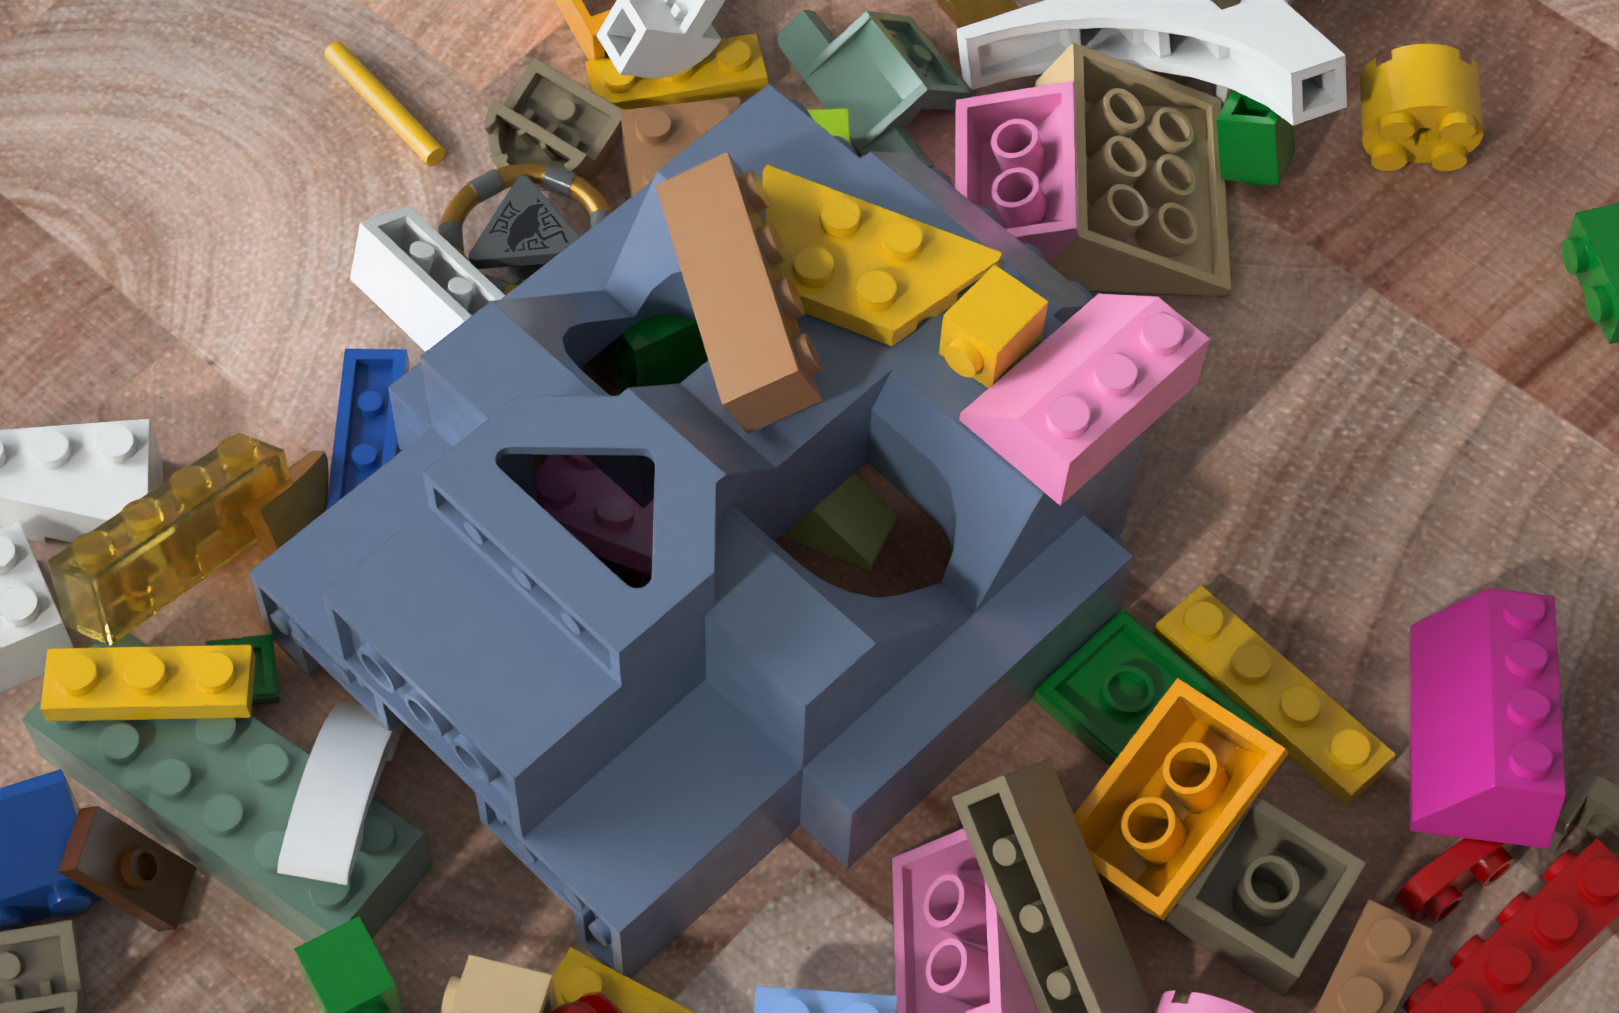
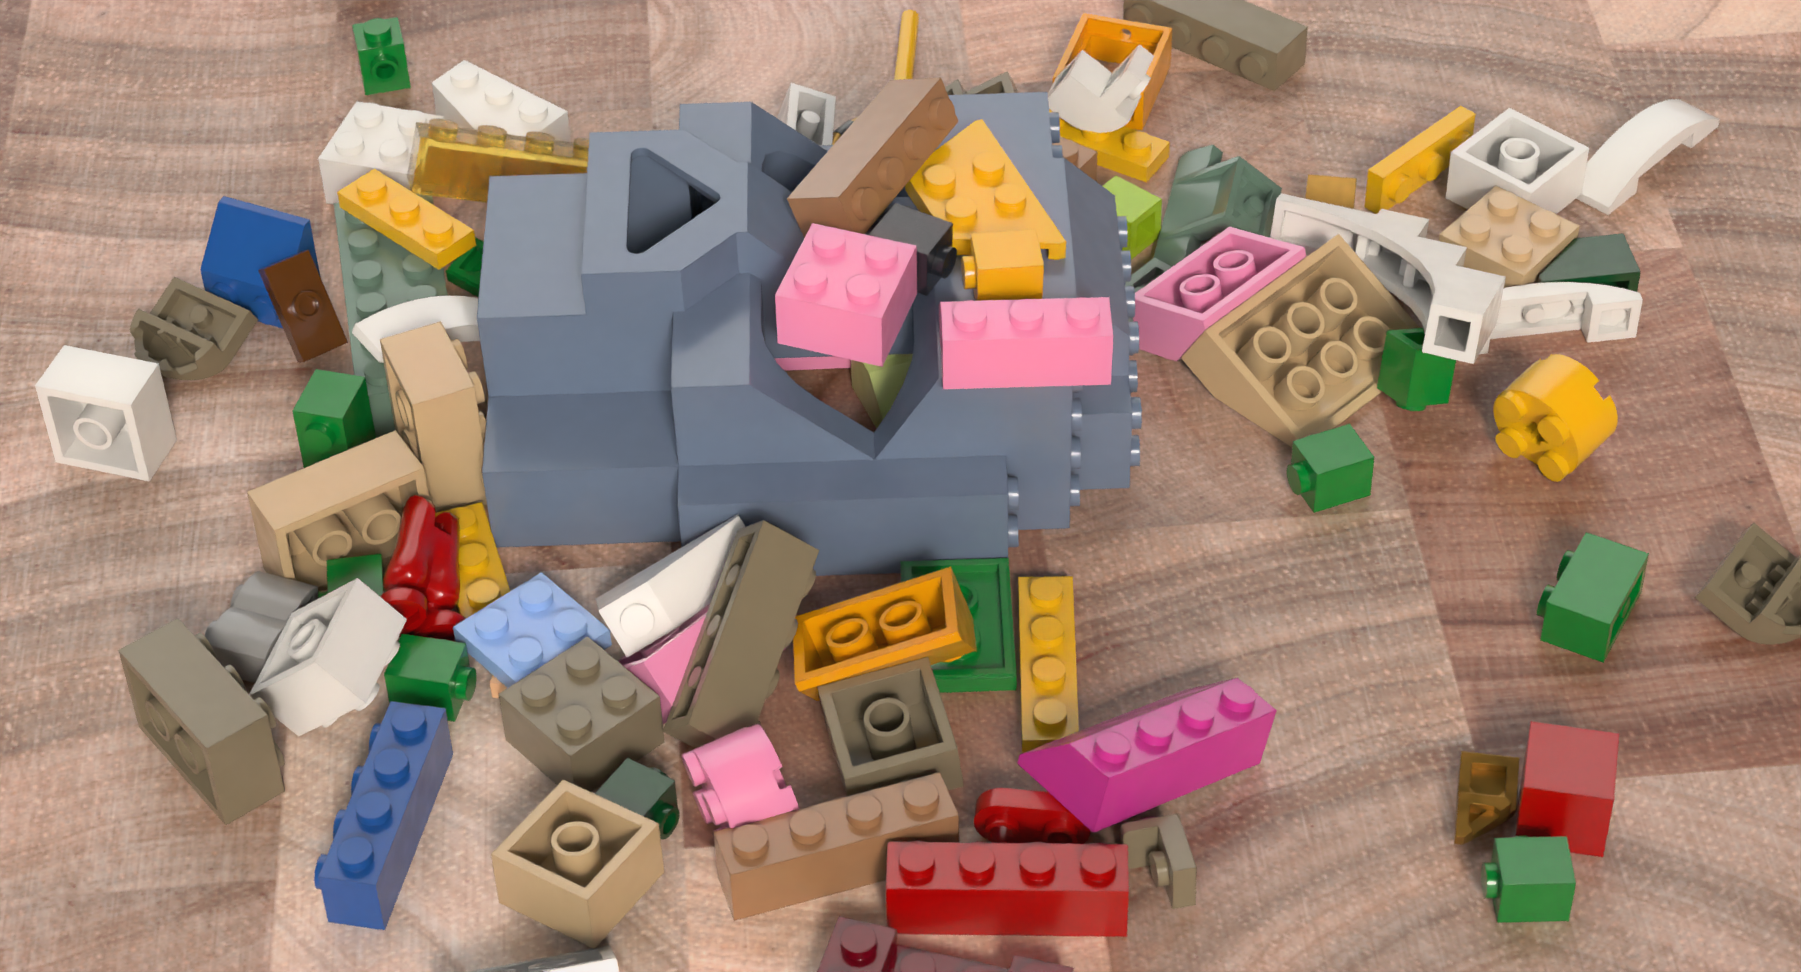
camera: 45 degrees right, 15 degrees down
(468, 891) = (438, 412): none -> tan brick
(883, 370) = (930, 235): none -> brick
(887, 471) = (846, 294): none -> bright pink brick
(907, 901) = (668, 590): none -> white slope
(1286, 296) = (1331, 468): none -> green brick

